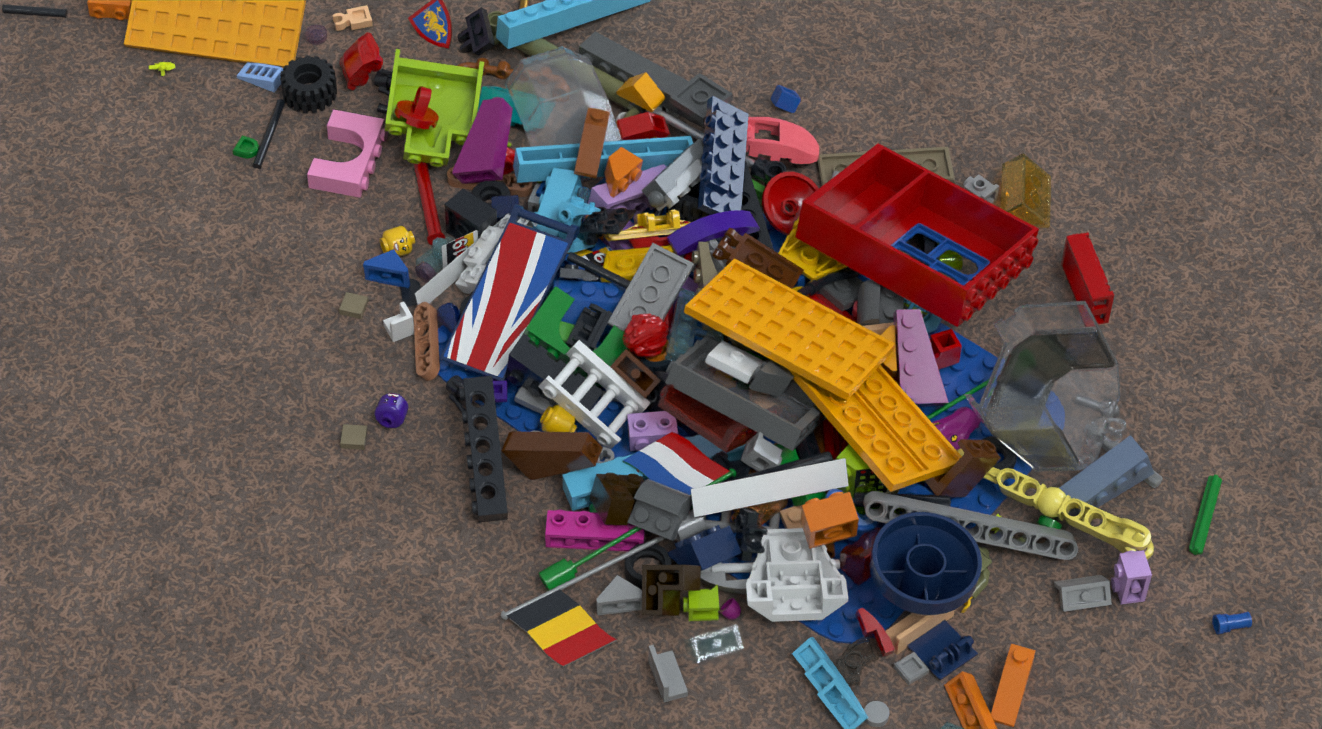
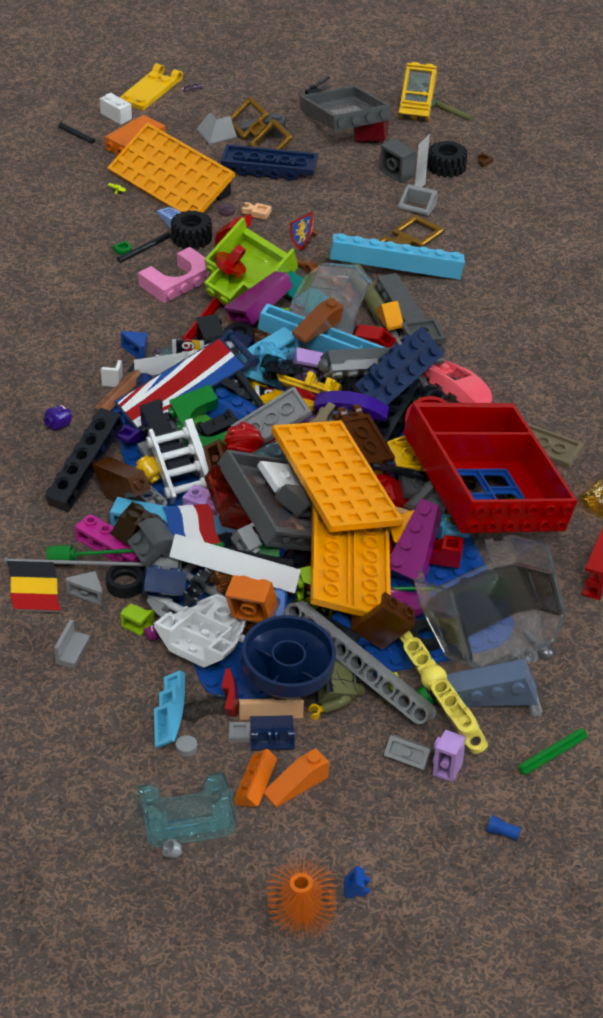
camera: 35 degrees right, 10 degrees down
(353, 305) = (97, 355): dark tan tile -> none
(353, 437) = (22, 422): dark tan tile -> none
(397, 239) = (157, 332): yellow head -> none
(478, 34) = (321, 248): black hinge -> none
(622, 170) = (321, 343): orange slope -> none
(663, 585) = (113, 591): dark brown brick -> none
(716, 643) = (124, 646): clear light blue slope -> none
(785, 98) = (495, 368): blue slope -> none
(982, 188) = (579, 474): light grey brick -> none

